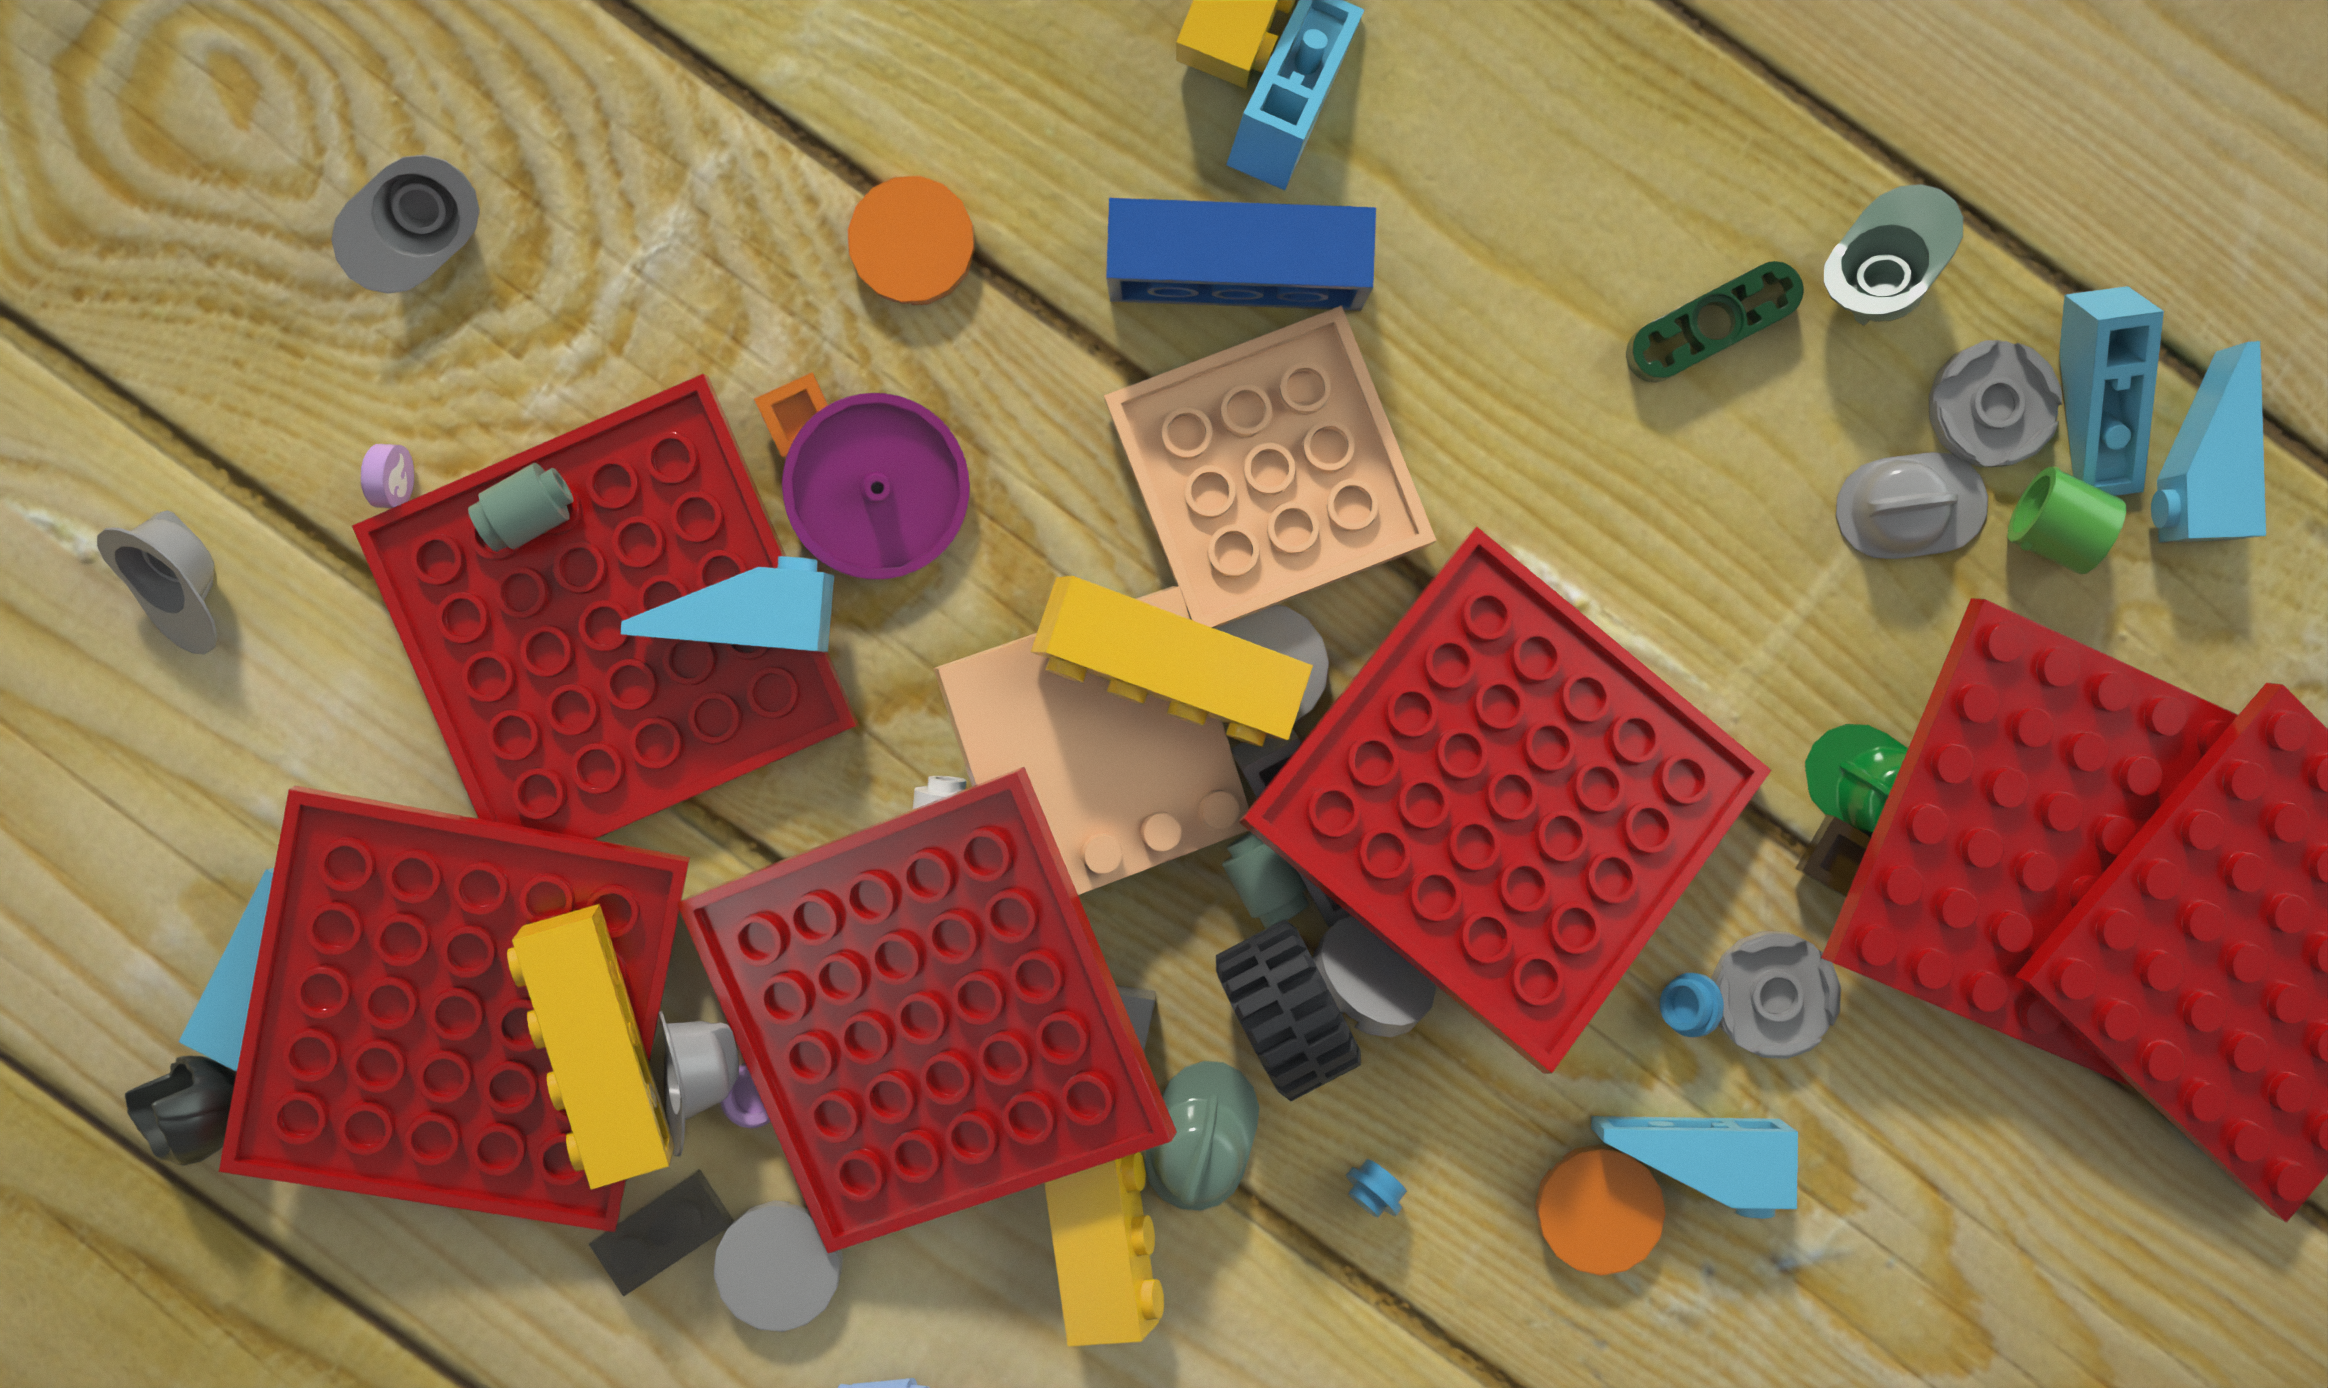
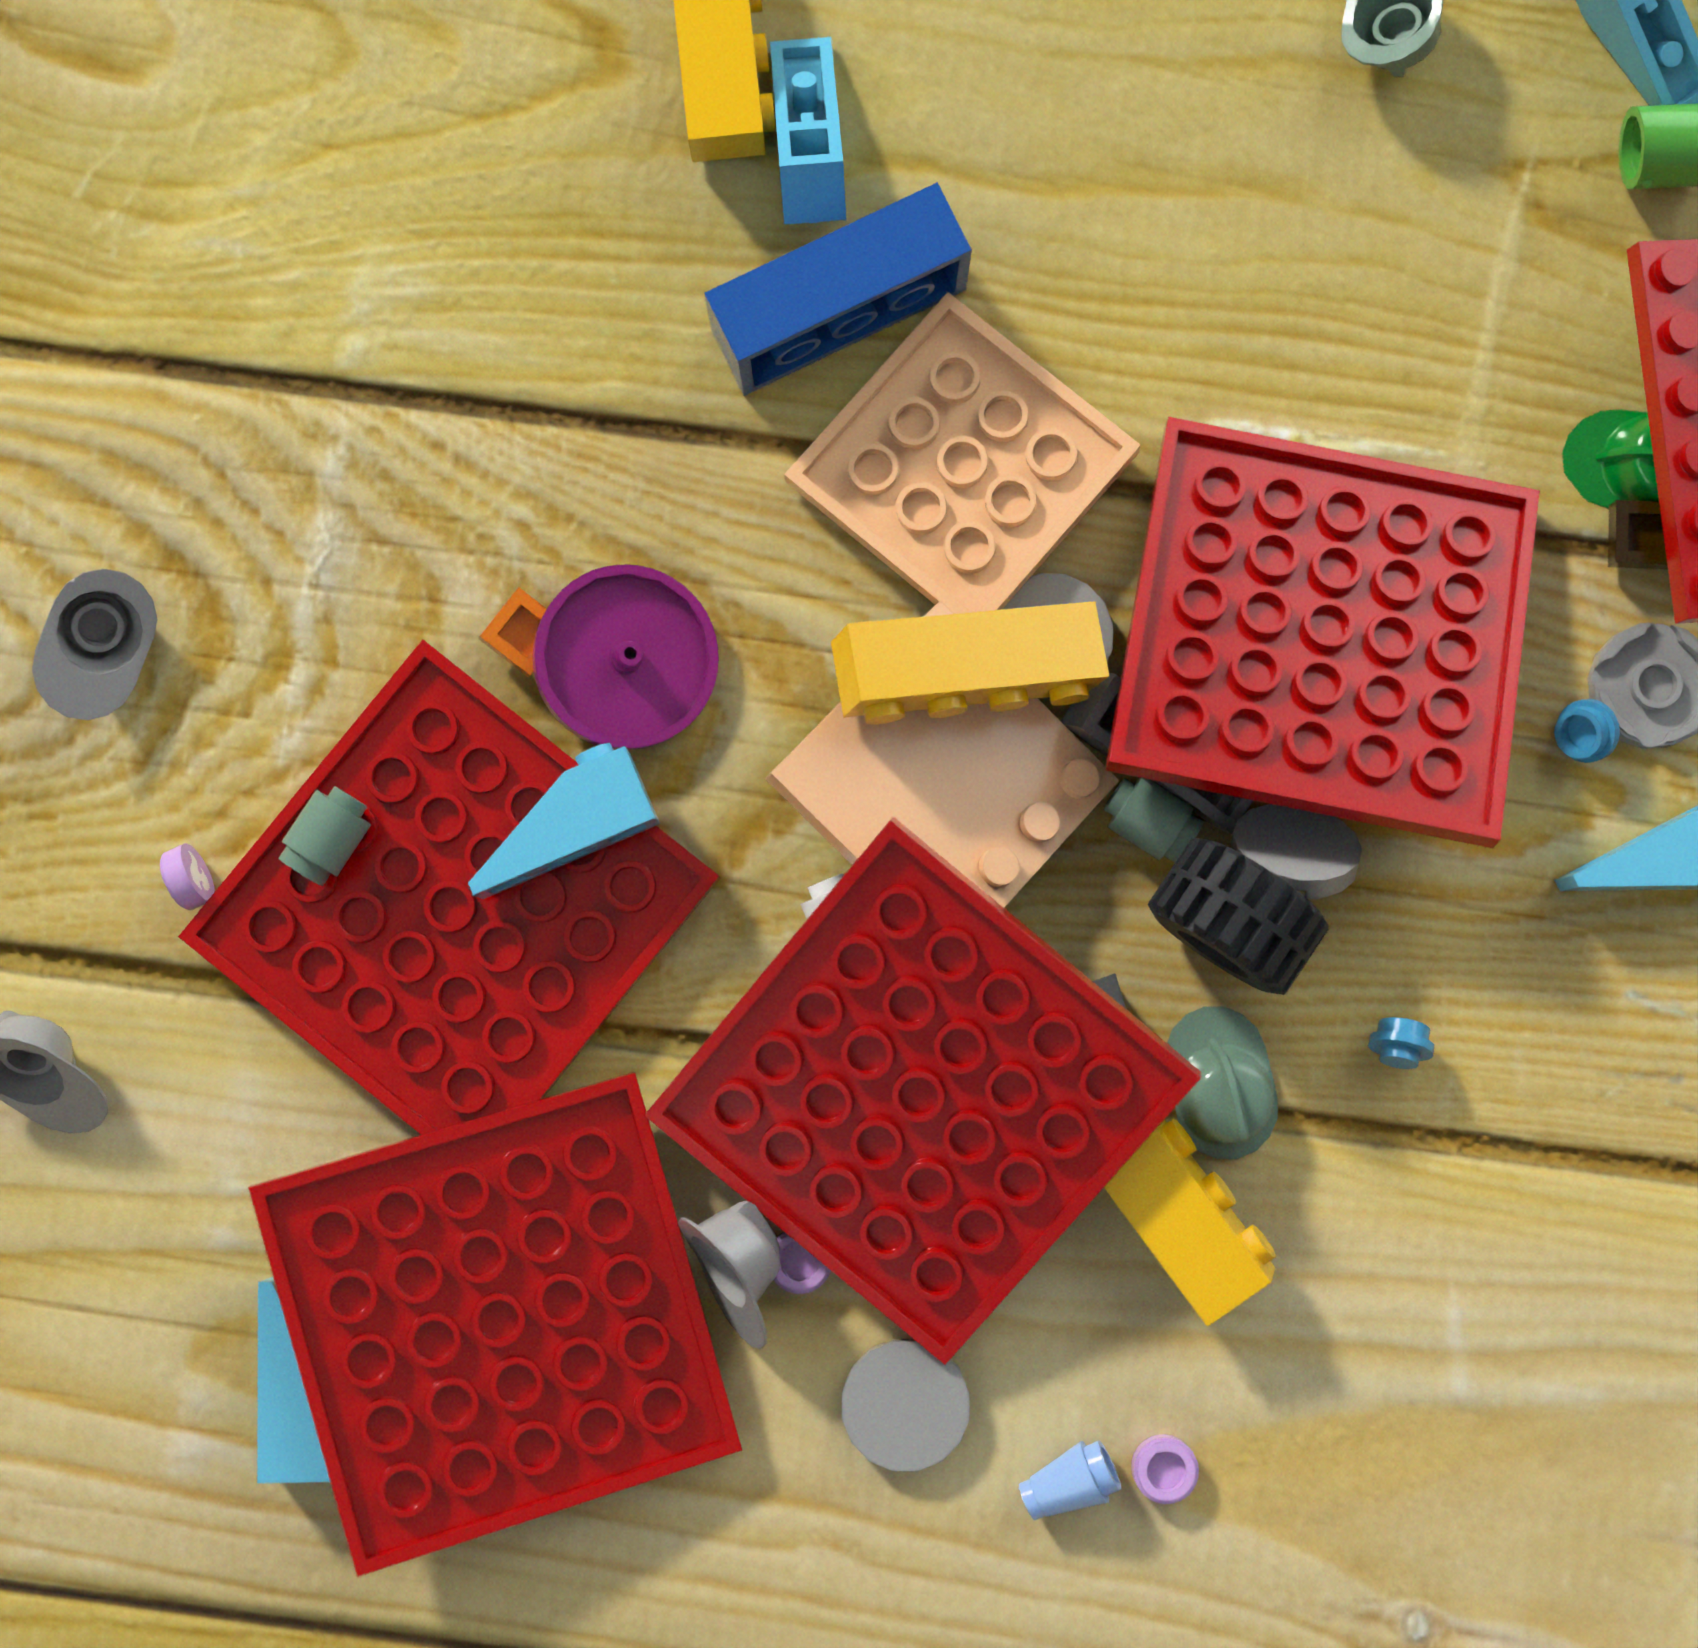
camera: 25 degrees left, 5 degrees down
(184, 1110) = (295, 1547): pearl dark grey hair -> none
(592, 1046) = (639, 1277): yellow brick -> none
(661, 1232) = (783, 1432): clear smoke plate -> none
(911, 240) = (544, 432): orange tile -> none
(1600, 1210) = (1609, 956): orange tile -> none
(1761, 316) = (1283, 96): dark green beam -> none
(1912, 505) = (1530, 206): light grey piece -> none
(1995, 403) = (1551, 84): light grey tile -> none

